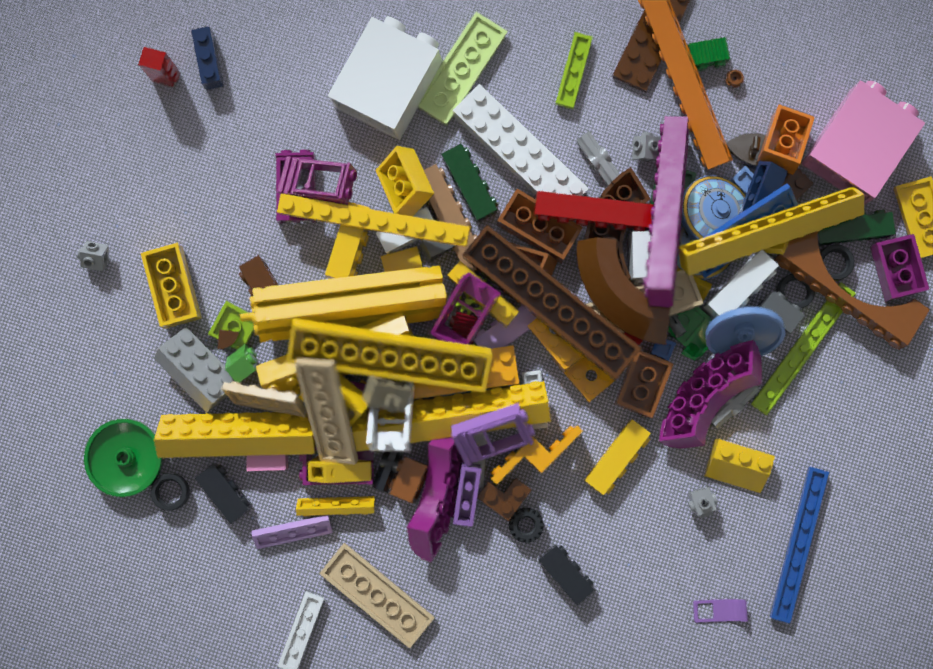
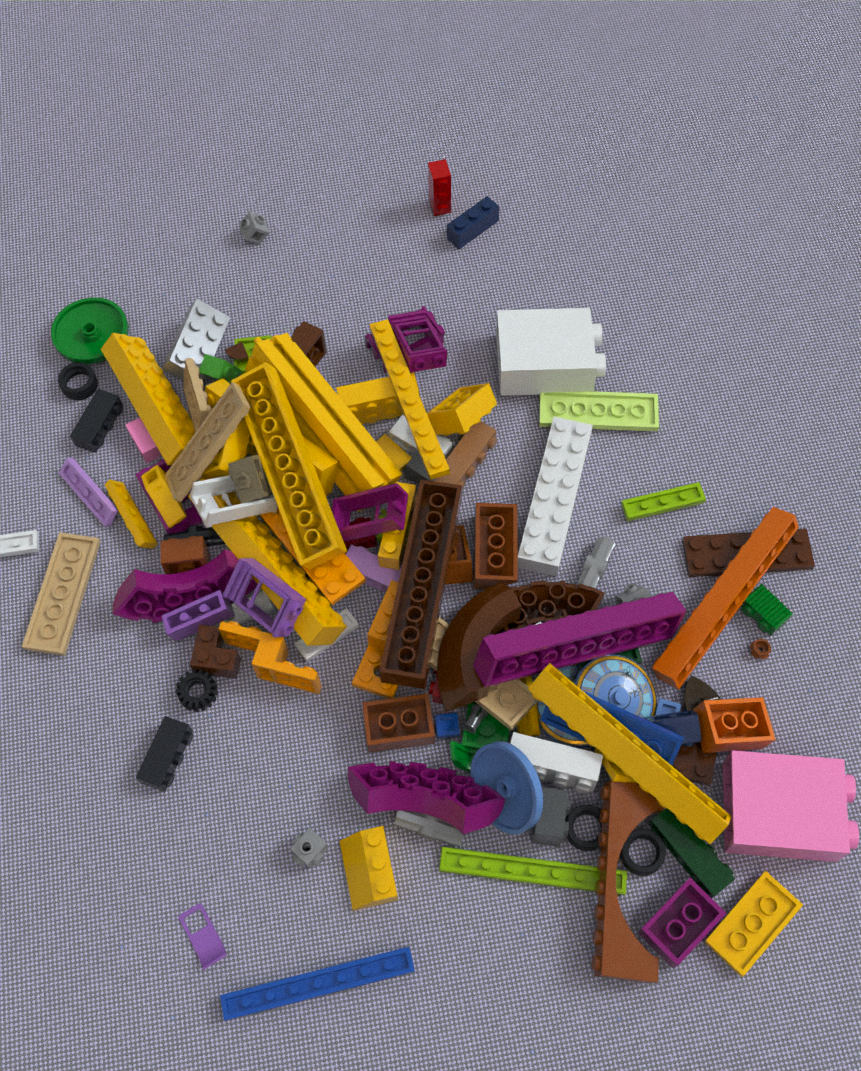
camera: 60 degrees right, 20 degrees down
(171, 285) = (260, 291): yellow brick -> none
(469, 183) = (498, 468): dark green brick -> none
(592, 210) = (533, 569): red brick -> none
(617, 457) = (310, 739): yellow brick -> none

